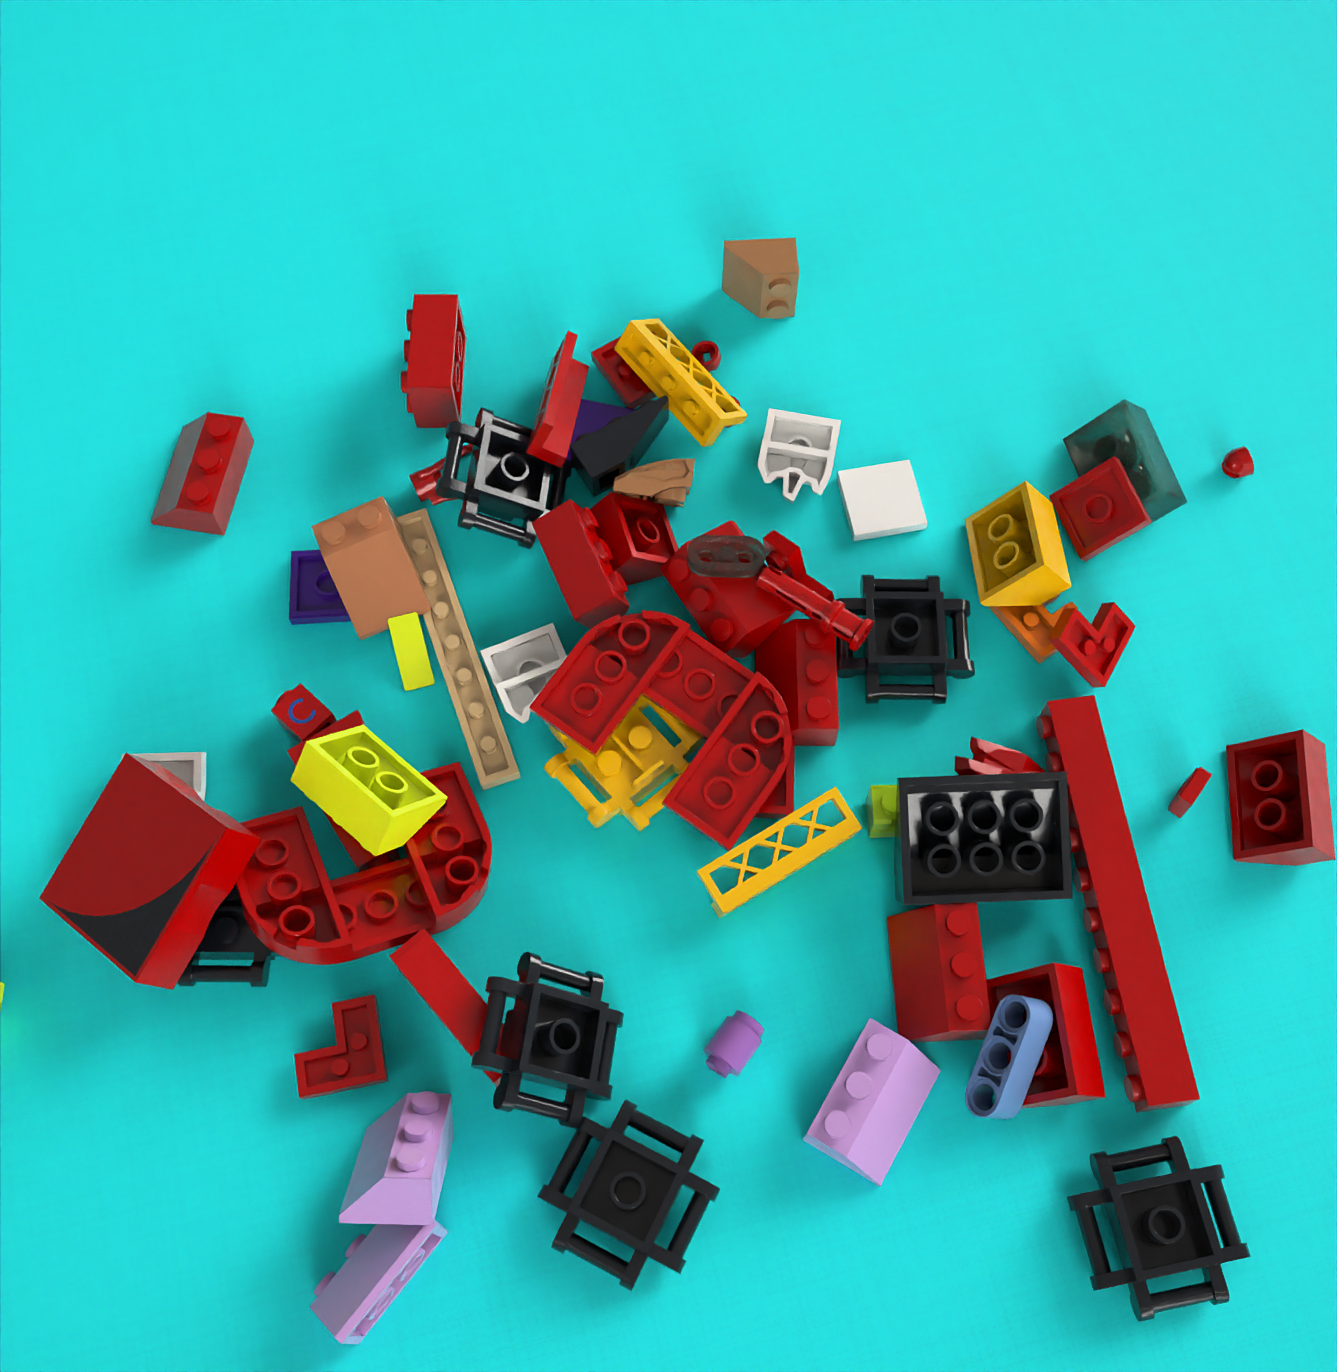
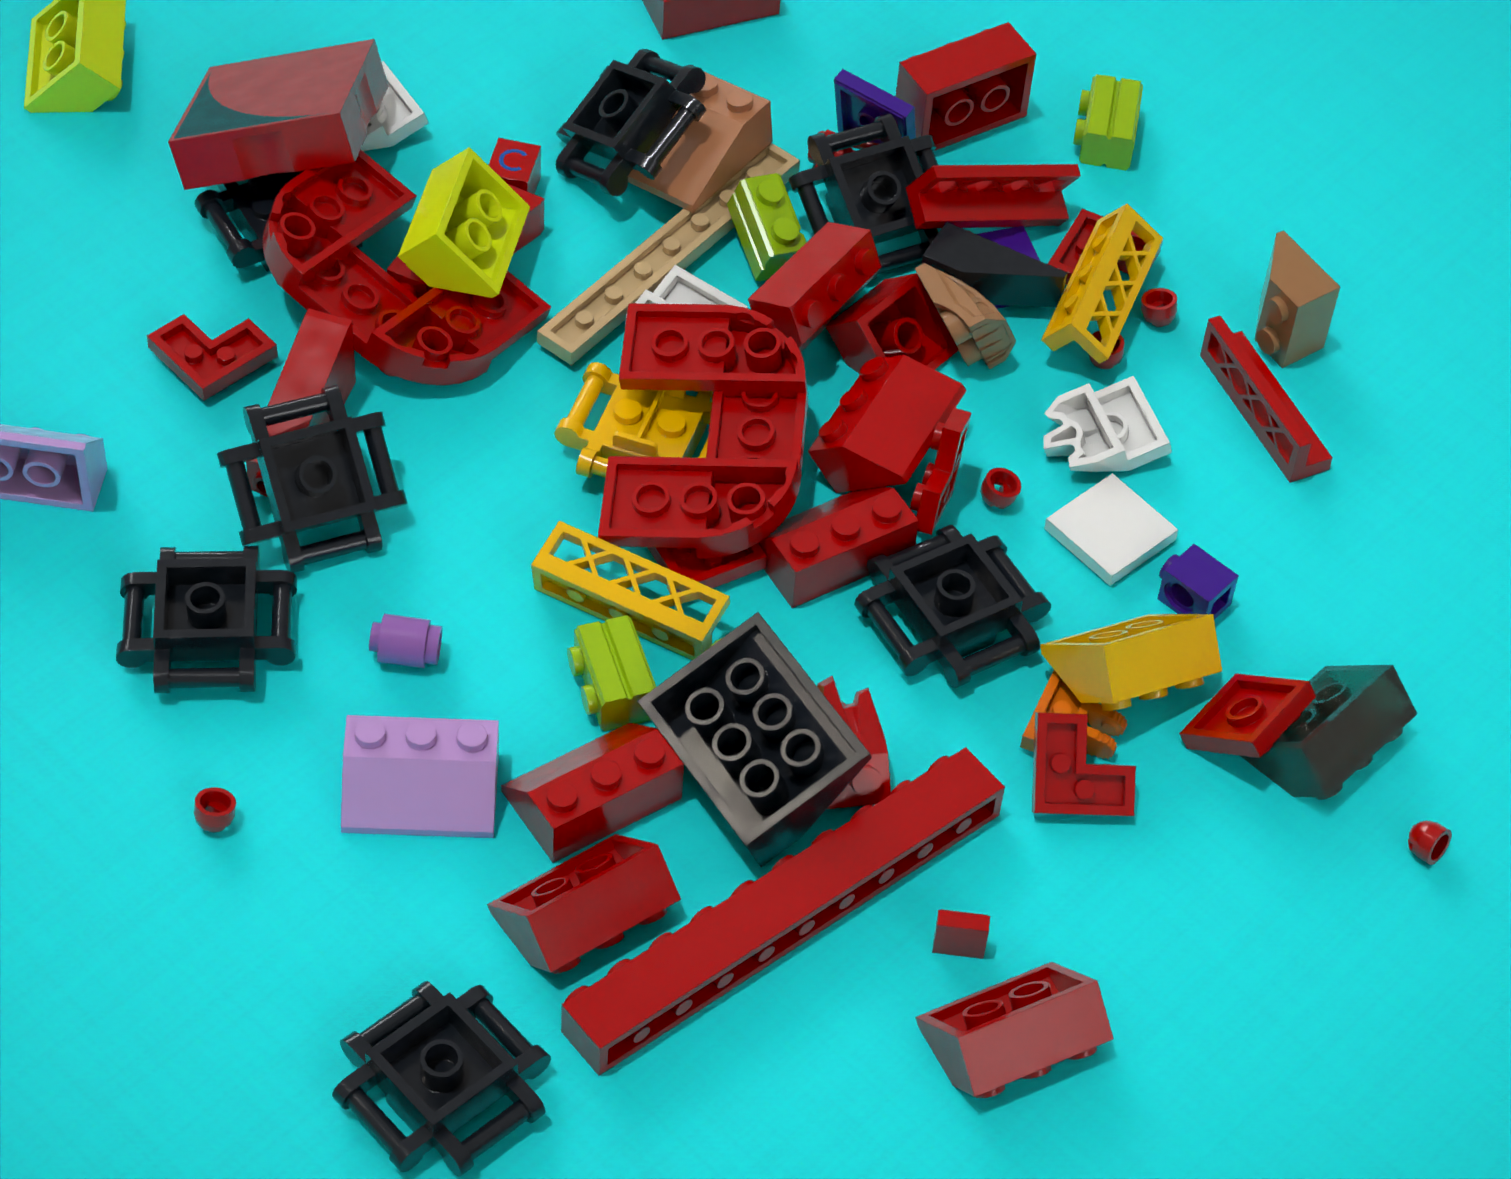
camera: 55 degrees right, 15 degrees down
(324, 604) = (630, 116): none -> black brick
(402, 1163) = (132, 419): lavender slope -> none
(411, 651) = (639, 220): neon yellow sticker -> none
(423, 435) = (862, 102): none -> dark purple tile
(486, 566) = (765, 223): none -> lime brick
(518, 289) = (1110, 122): none -> lime brick
(724, 556) = (912, 393): clear smoke plate -> none
(813, 548) = (1009, 488): none -> red hinge
(817, 1273) = (214, 809): none -> red hinge
(826, 345) = (1263, 402): none -> red fence
(830, 615) = (909, 499): red pin -> none
(845, 905) = (612, 671): none -> lime brick
(967, 476) = (1196, 583): none -> dark purple brick
(992, 1068) = (535, 859): medium blue beam -> none

